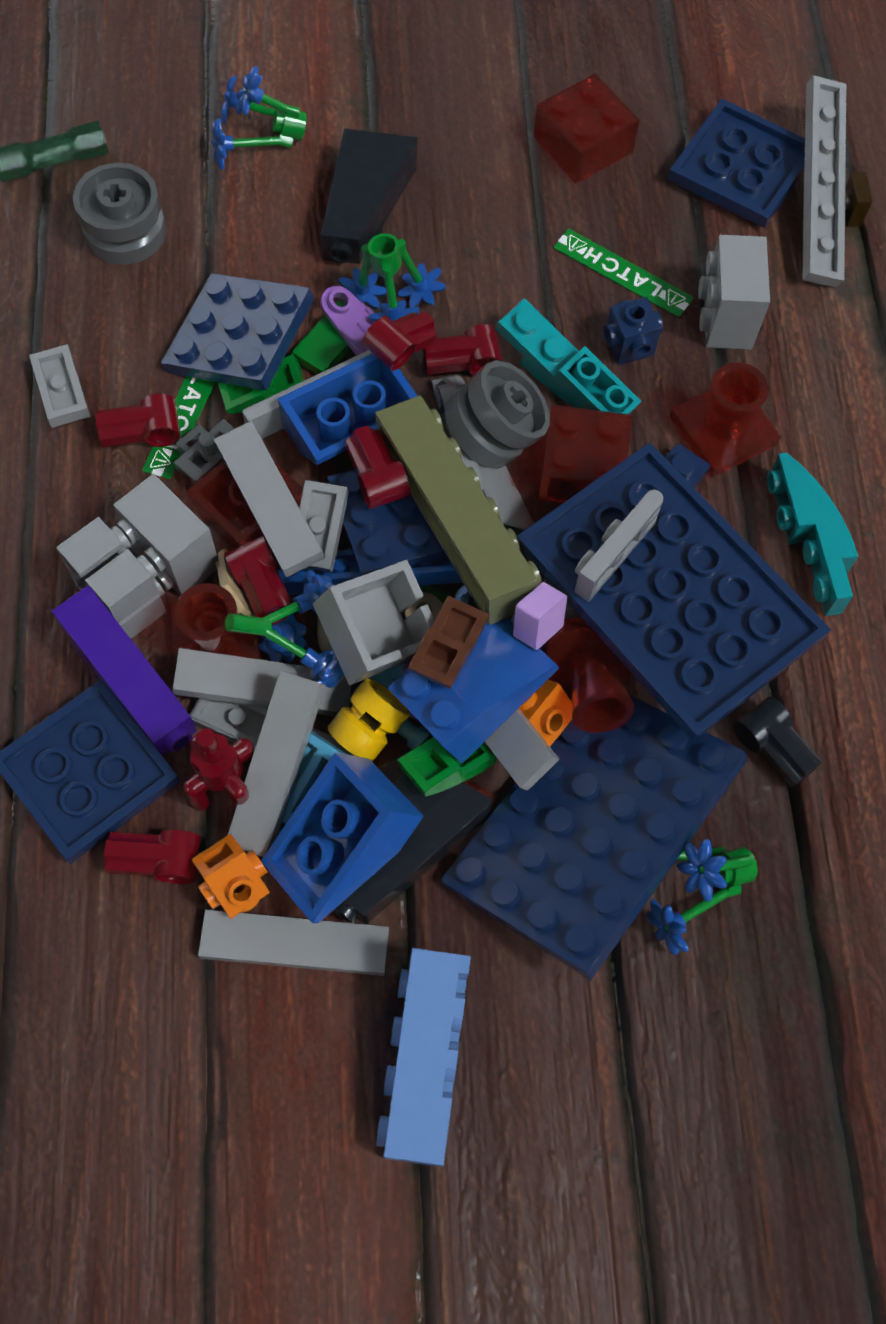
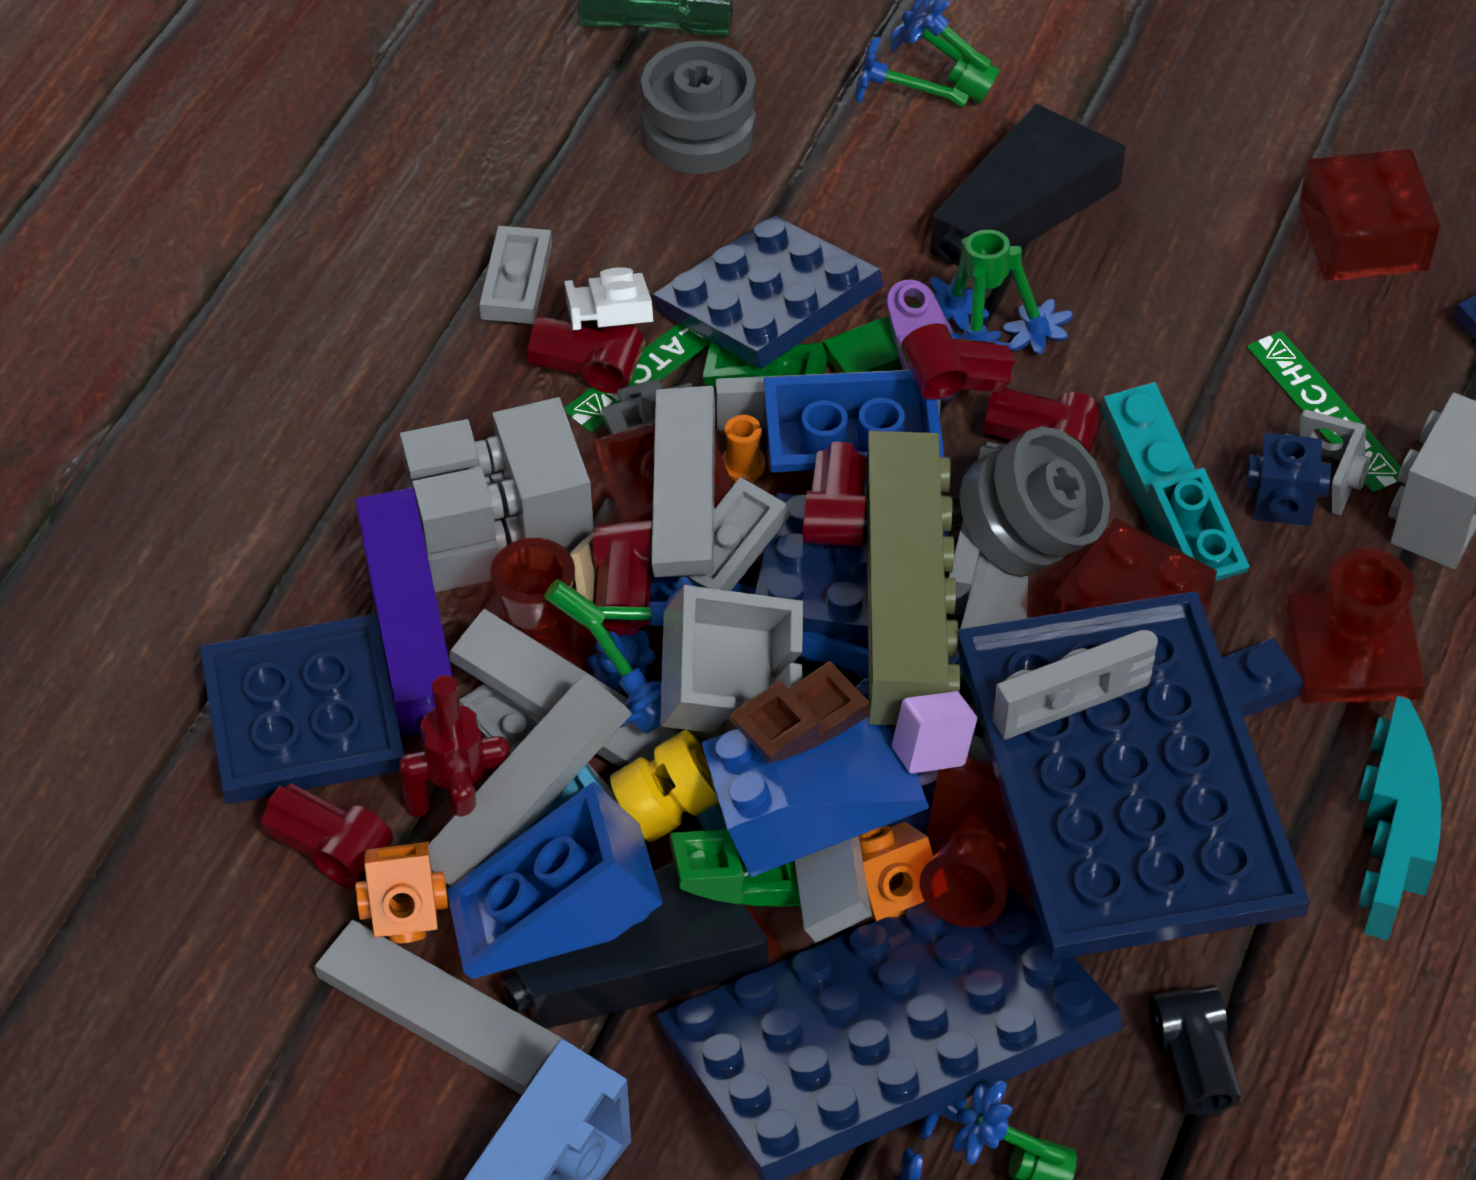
camera: 30 degrees right, 15 degrees down
(137, 380) = (611, 299): none -> white plate
(284, 451) = (743, 449): none -> orange pin
(657, 293) = (1353, 464): none -> light grey bracket

